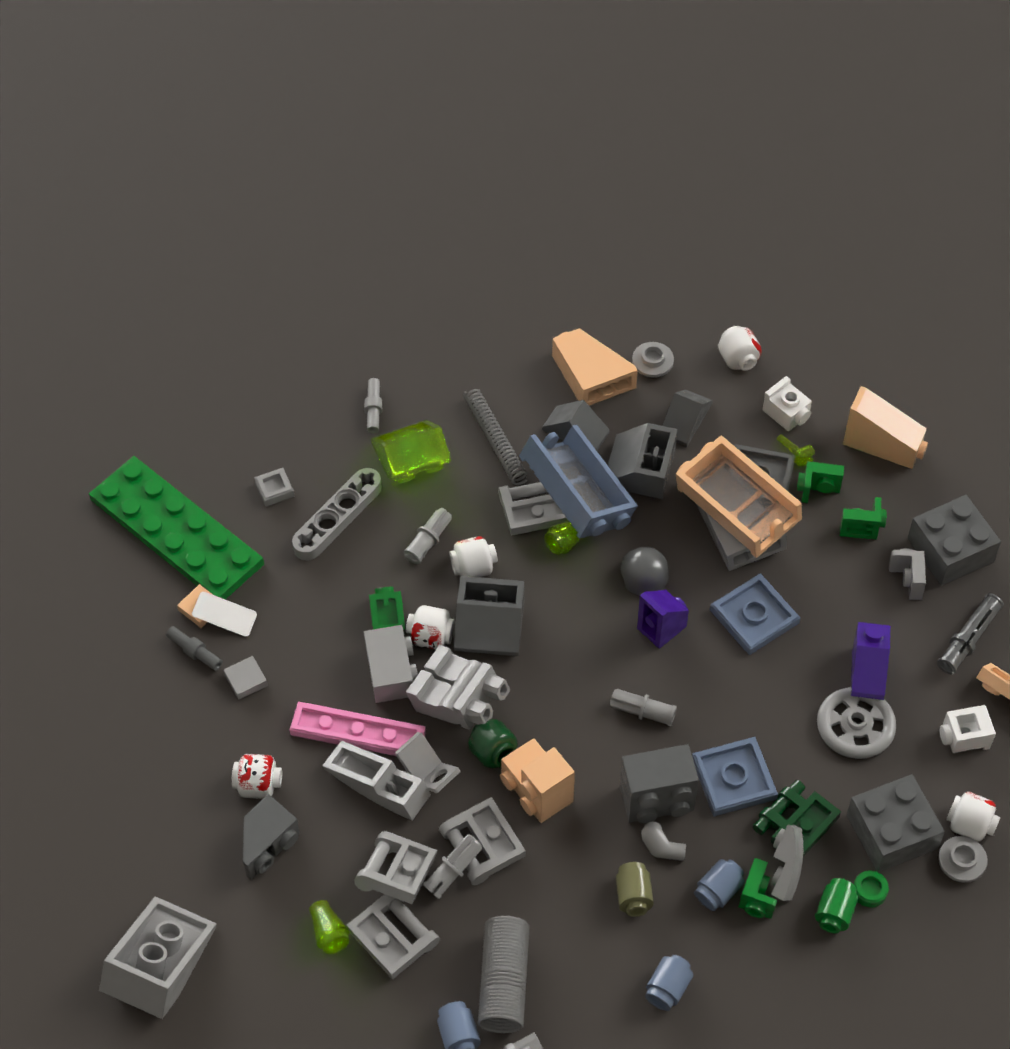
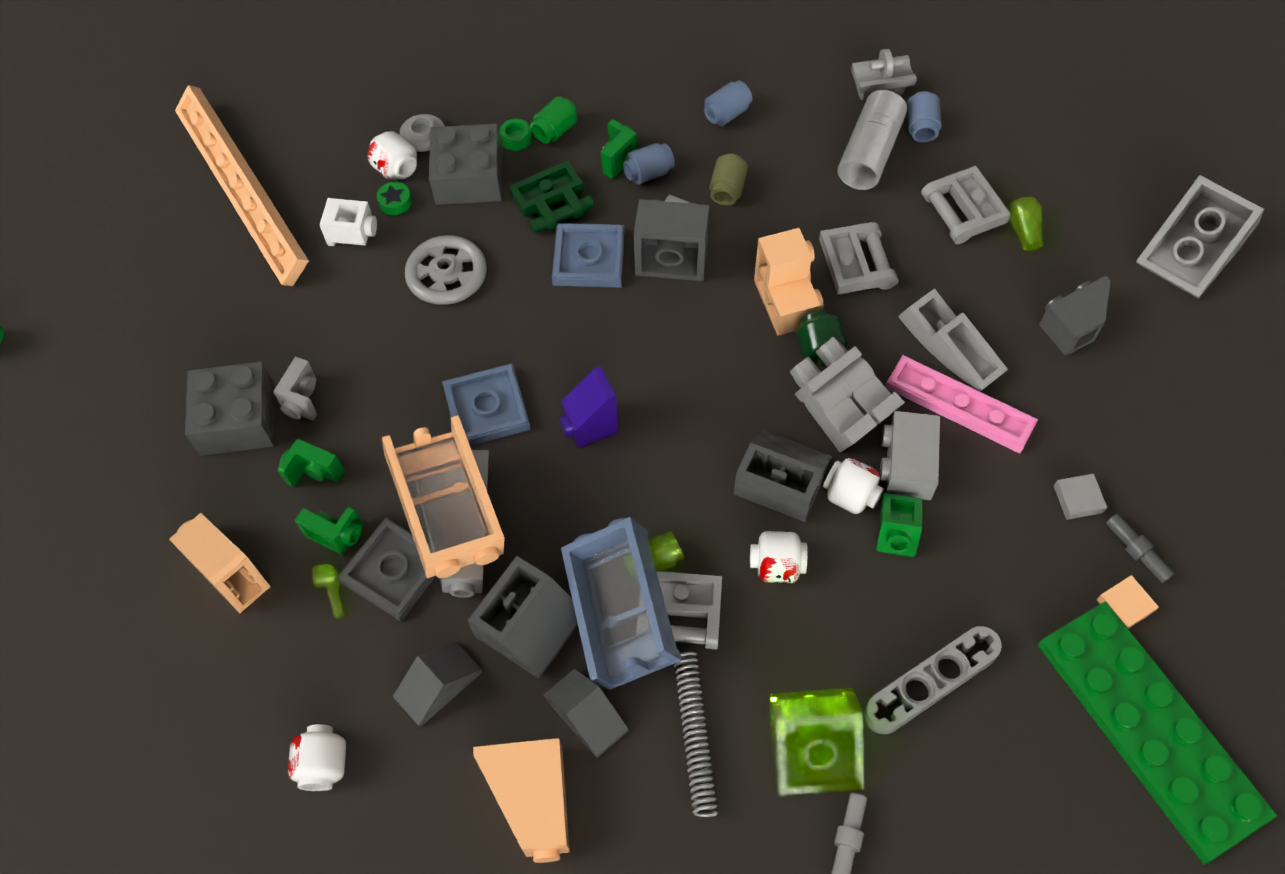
camera: 160 degrees left, 5 degrees up
(224, 613) = (1099, 580): white sticker -> none
(256, 776) = (1082, 377): white head -> none
(274, 487) = (1010, 751): light grey tile -> none
(405, 872) = (943, 239): light grey plate -> none
(423, 763) = (898, 339): light grey bracket -> none
(427, 536) = (824, 609): light grey axle -> none
(453, 865) = (896, 235): light grey axle -> none
(643, 706) = (649, 337): light grey axle -> none
(644, 570) = (583, 486): dark grey hair -> none
(653, 359) = (438, 787): light grey piece -> none
(787, 404) = (312, 657): white brick -> none
(789, 850) = (582, 147): light grey slope -> none
(870, 660) = (399, 306): dark purple slope -> none
(946, 779) = (394, 198): none -> green tile
(963, 643) = (286, 312): dark grey pin -> none

